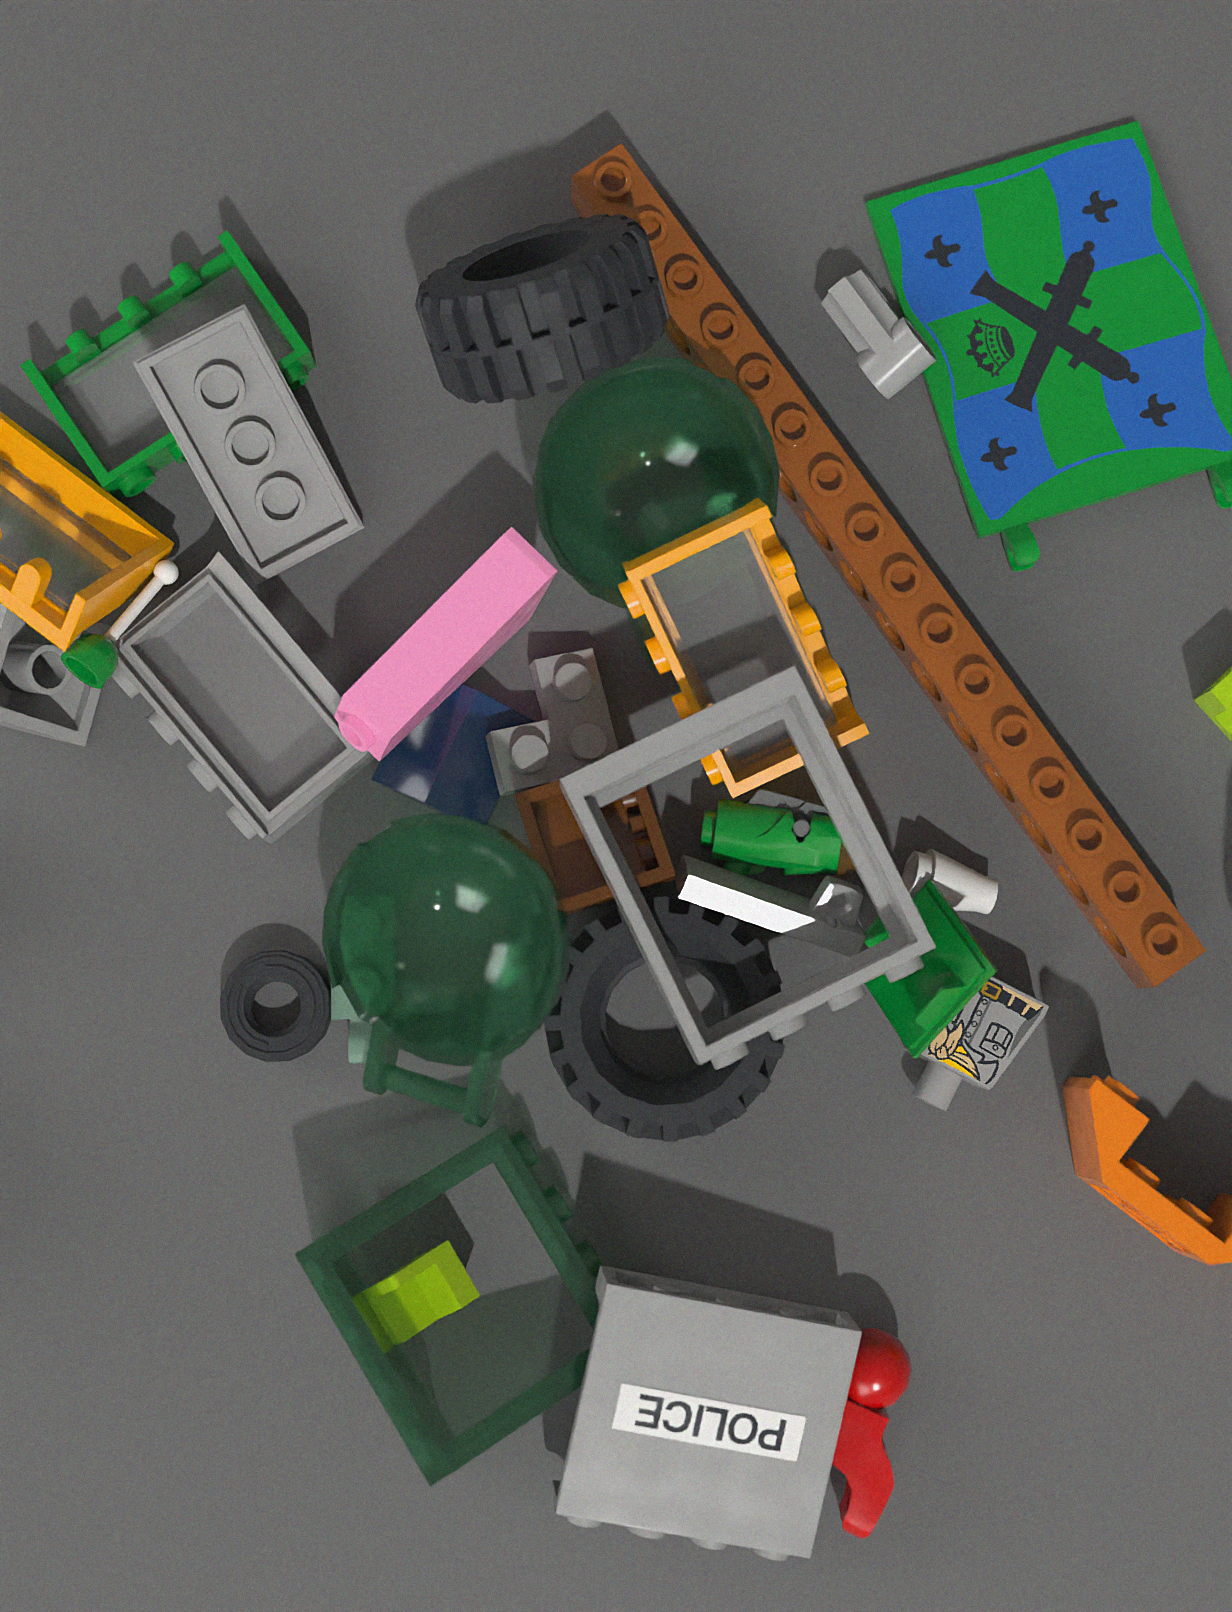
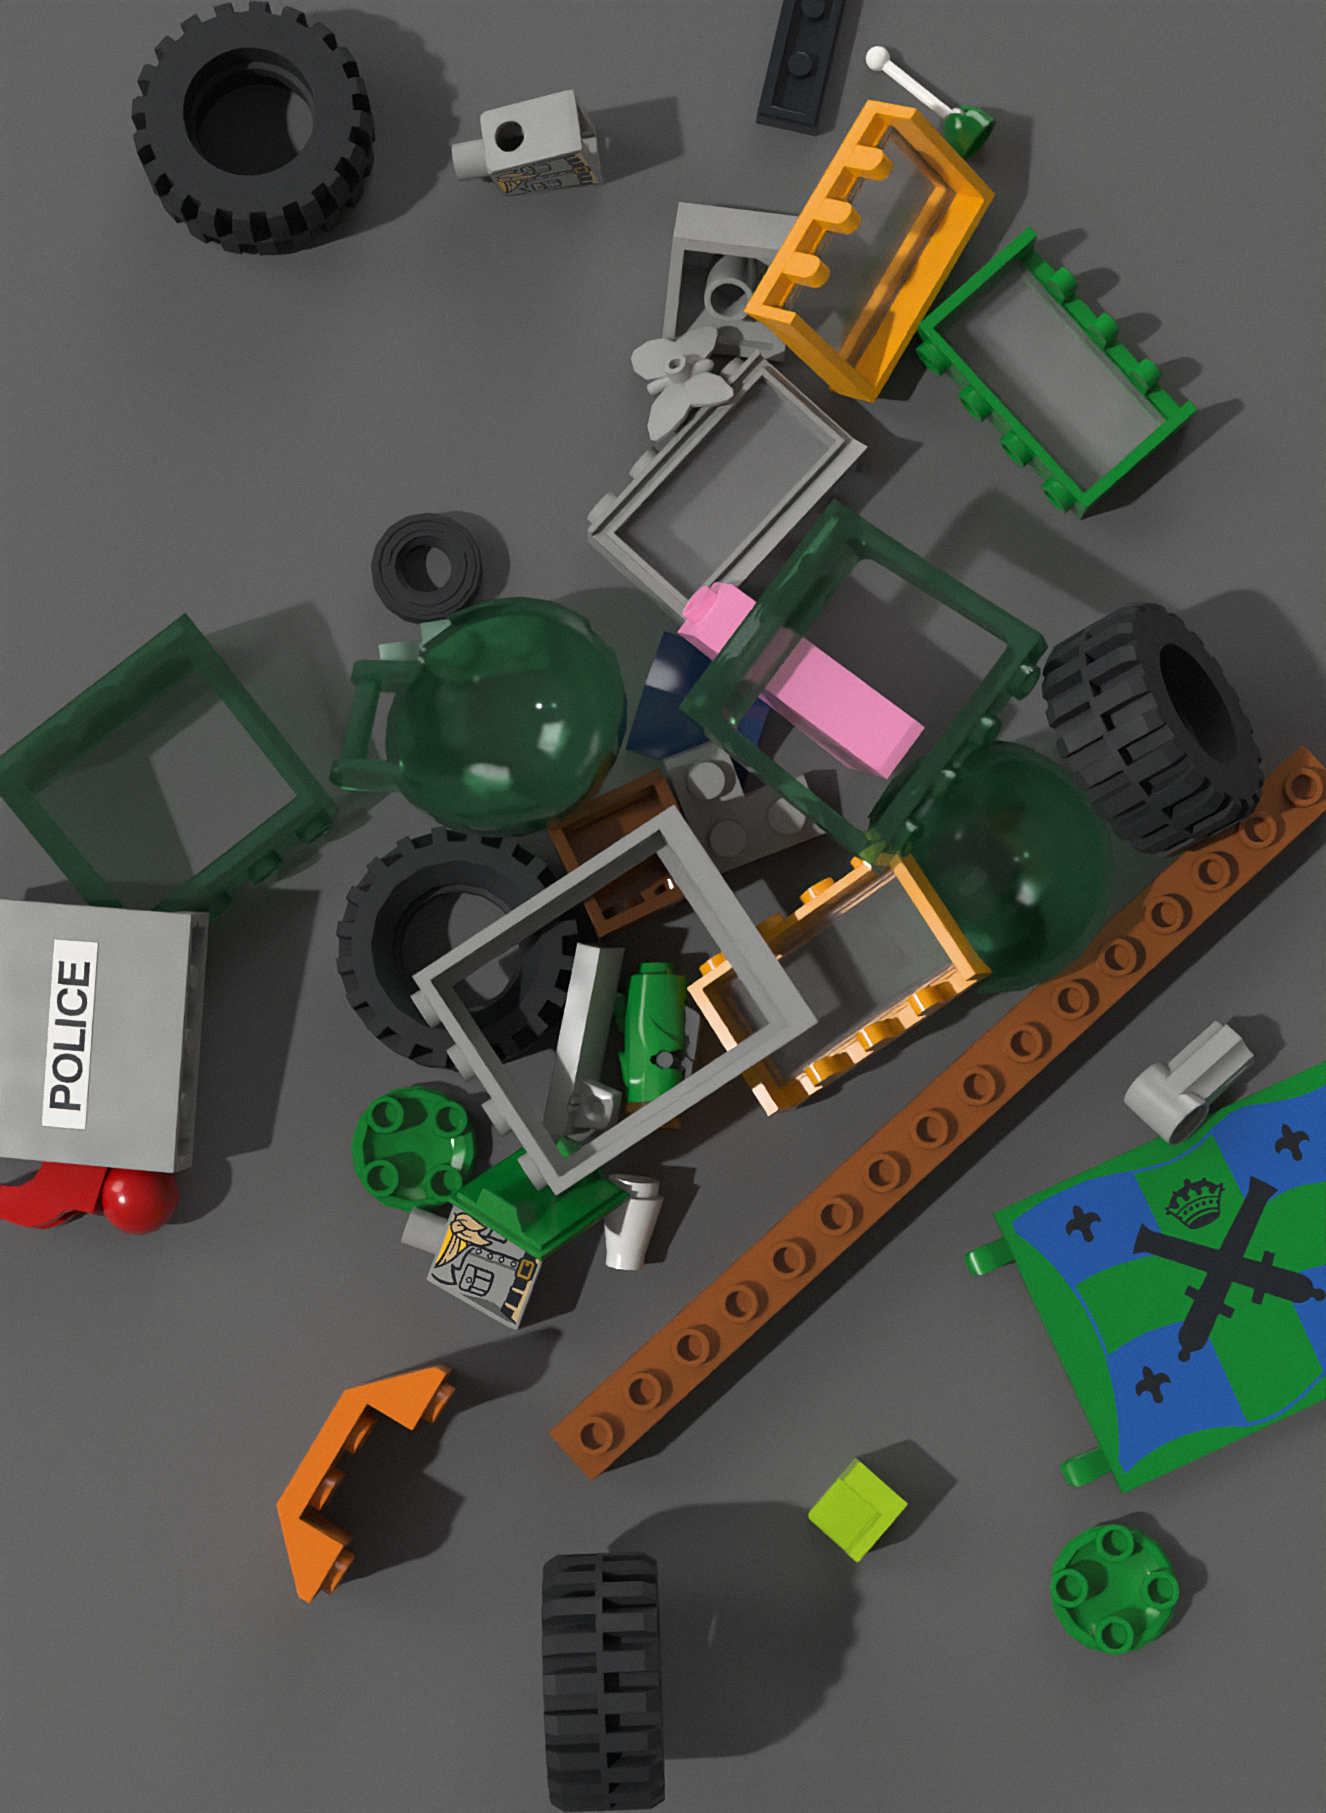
camera: 80 degrees right, 0 degrees up
(94, 656) = (745, 342): green hinge -> none
(120, 725) = (680, 377): none -> light grey piece
(248, 444) = (984, 457): light grey tile -> none
(394, 654) = (782, 619): none -> clear green windscreen
(421, 1292) = (163, 745): lime panel -> none
(854, 1088) = (413, 1148): none -> green dish

